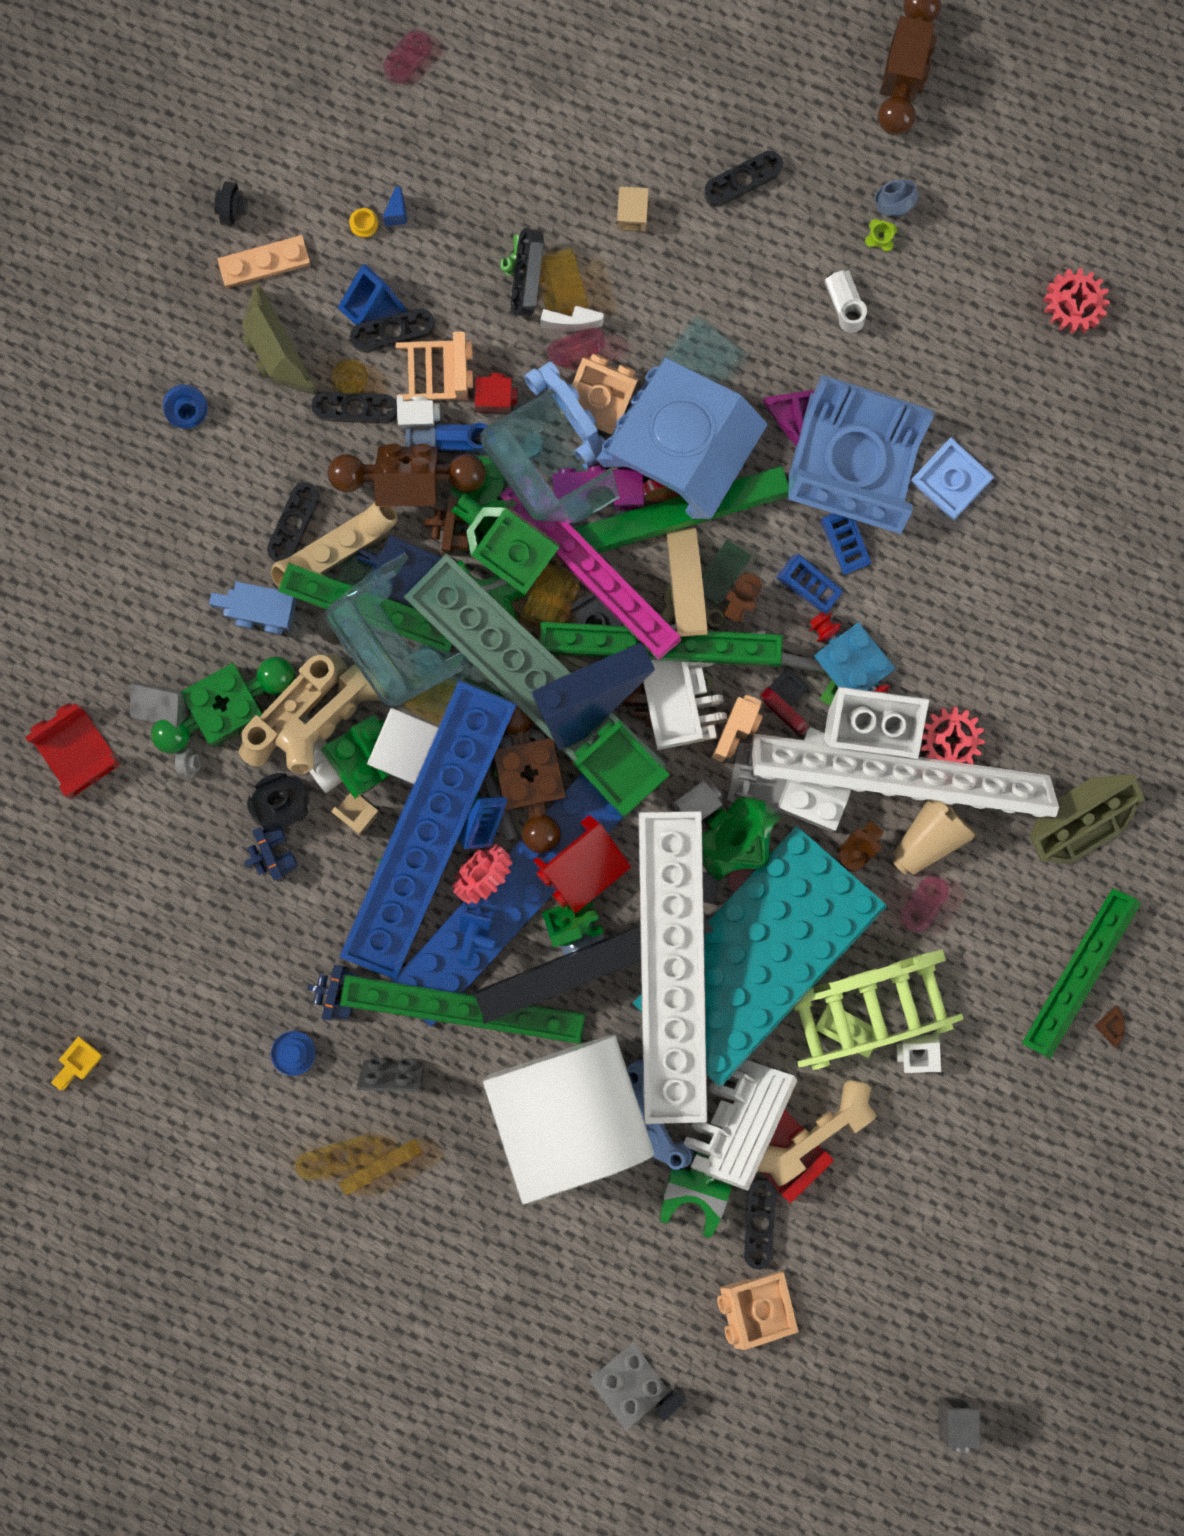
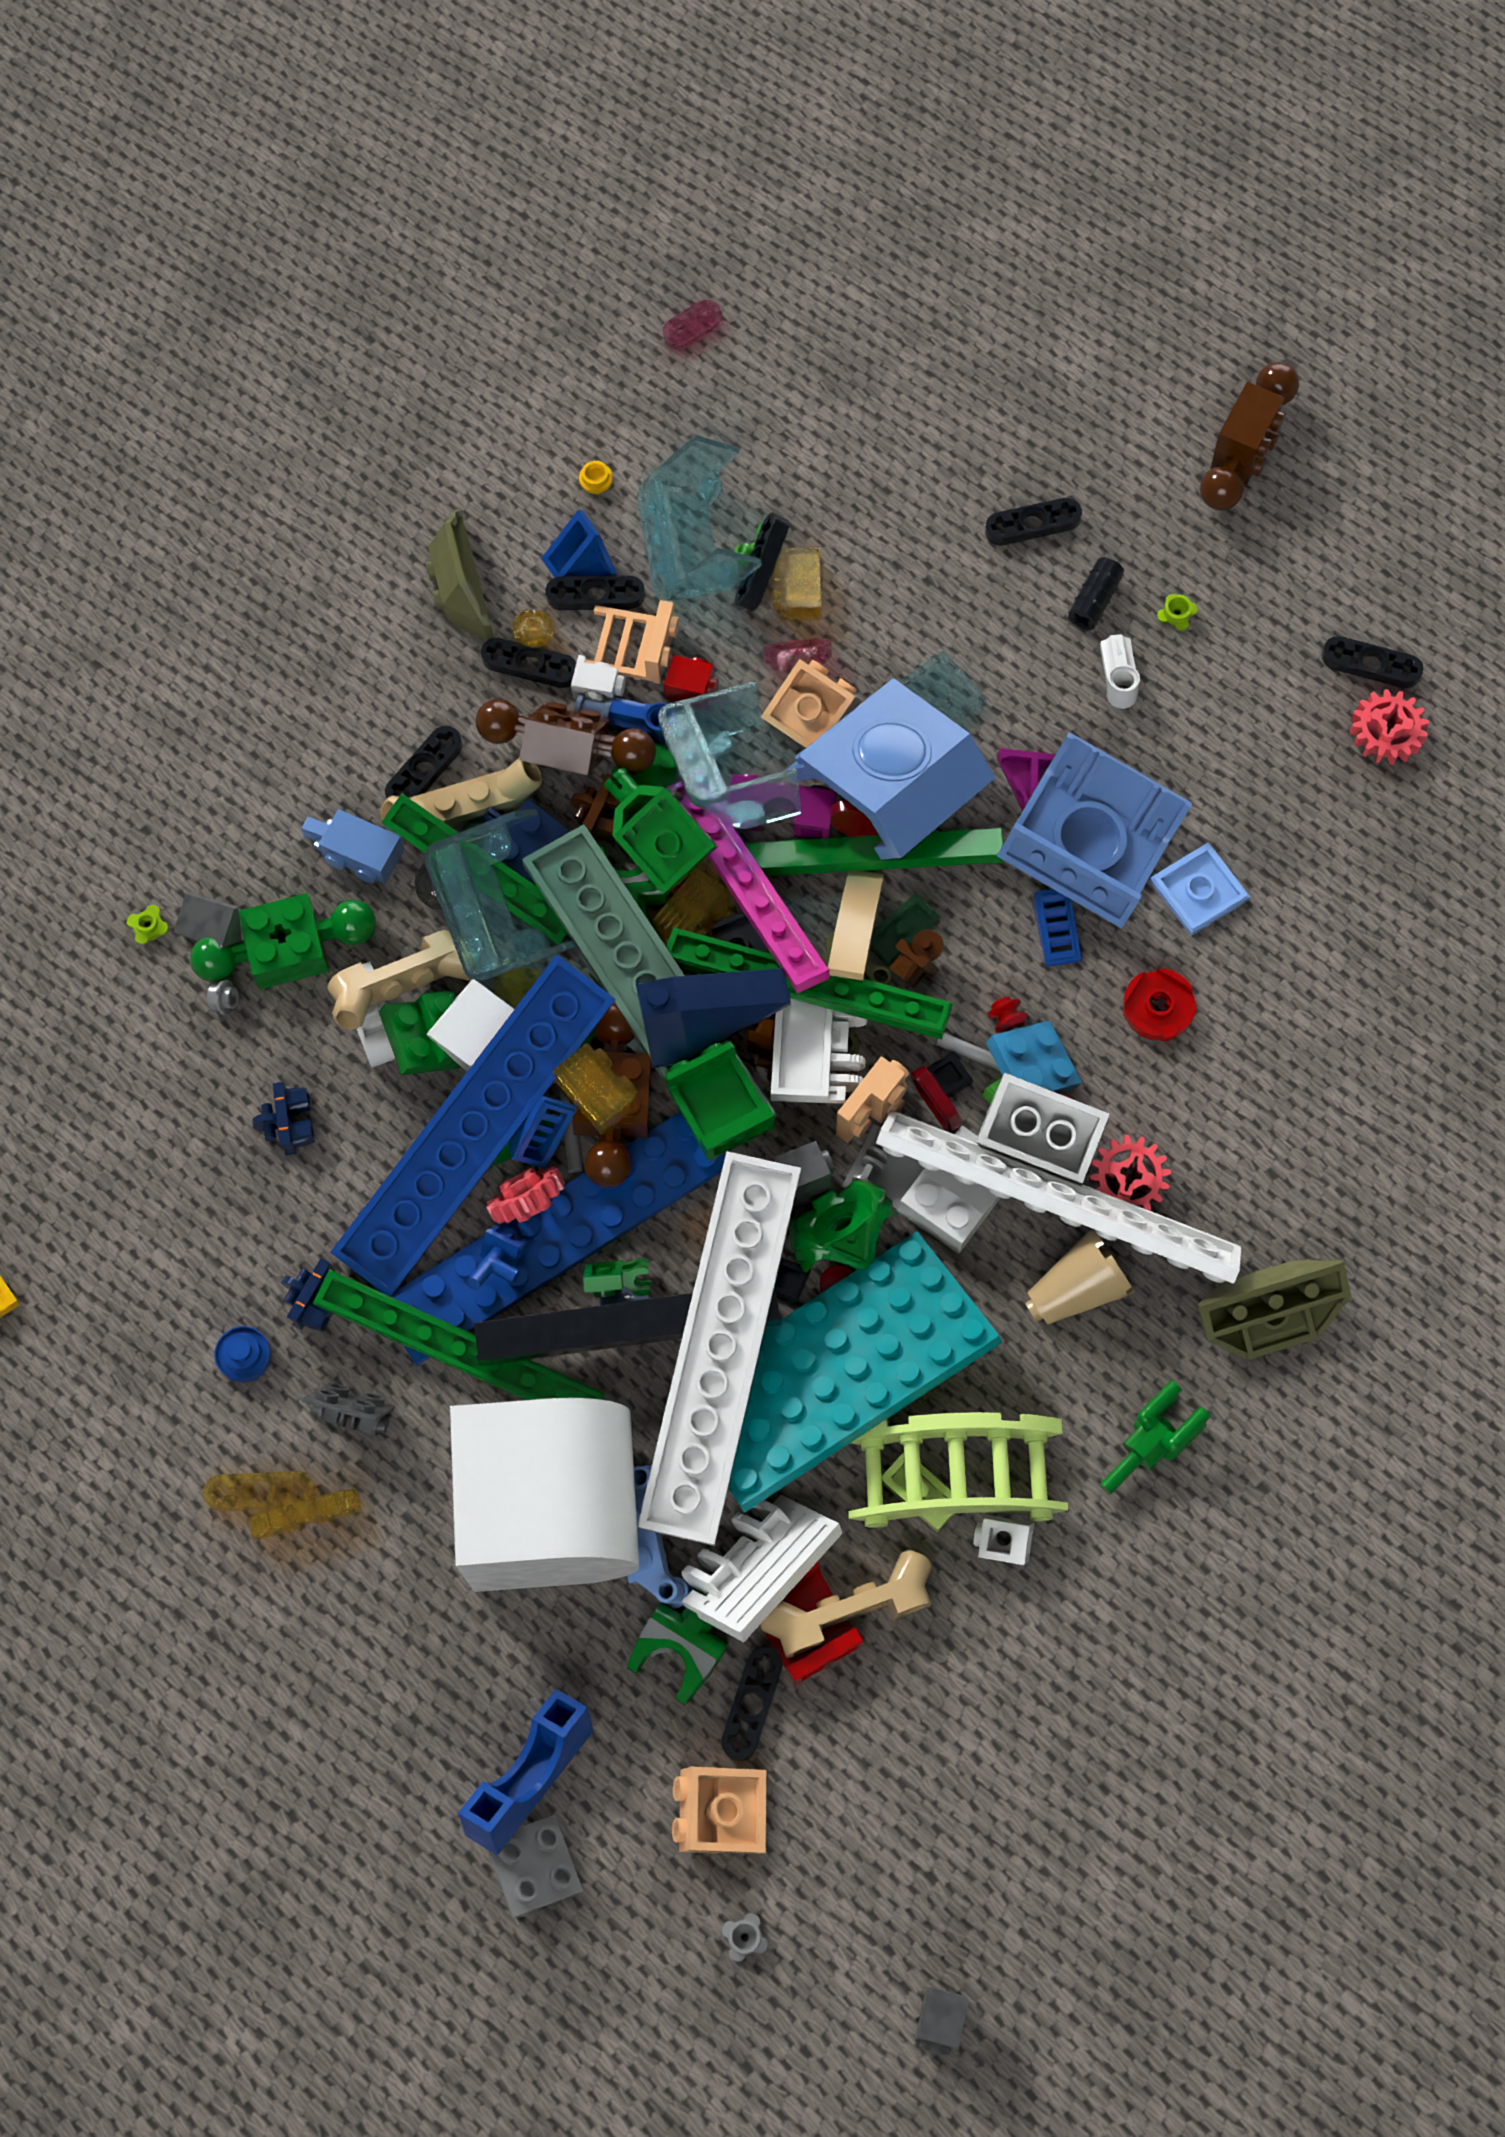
camera: 20 degrees right, 15 degrees down
(73, 749) = (98, 952): red panel -> none
(106, 724) = (154, 931): none -> lime plate
(185, 406) = (338, 613): blue plate -> none
(230, 203) = (453, 425): black plate -> none
(263, 261) = (474, 493): light nougat plate -> none
(286, 813) = (327, 1069): black plate -> none
(298, 699) = (397, 934): tan plate -> none
(356, 813) = (401, 1098): tan panel -> none
(395, 211) = (634, 469): blue slope -> none
(448, 256) = (678, 524): none -> clear light blue windscreen
(519, 782) = (595, 1087): none -> clear yellow brick
(580, 320) = (806, 626): white slope -> none
(582, 420) = (771, 696): light blue plate -> none
(583, 867) = (647, 1214): red panel -> none
(600, 1349) = (503, 1805): none -> blue arch
(632, 208) = (899, 524): tan panel -> none
(670, 1403) = (579, 1901): black tile -> none
(797, 1404) = (739, 1948): none -> light grey plate
(803, 592) = (983, 962): blue slope -> none
(811, 234) = (1096, 593): none -> black axle
(860, 847) = (988, 1271): reddish brown hips -> none
(896, 197) = (1203, 575): sand blue plate -> none
(925, 905) = (1051, 1363): clear pink plate -> none
(957, 580) = (1157, 985): none -> red plate
(1017, 945) = (1155, 1436): none -> green plant
(1059, 235) = (1383, 654): none -> black beam
(1081, 973) = (1228, 1493): green plate -> none
(1112, 1026) = (1255, 1570): reddish brown tile -> none

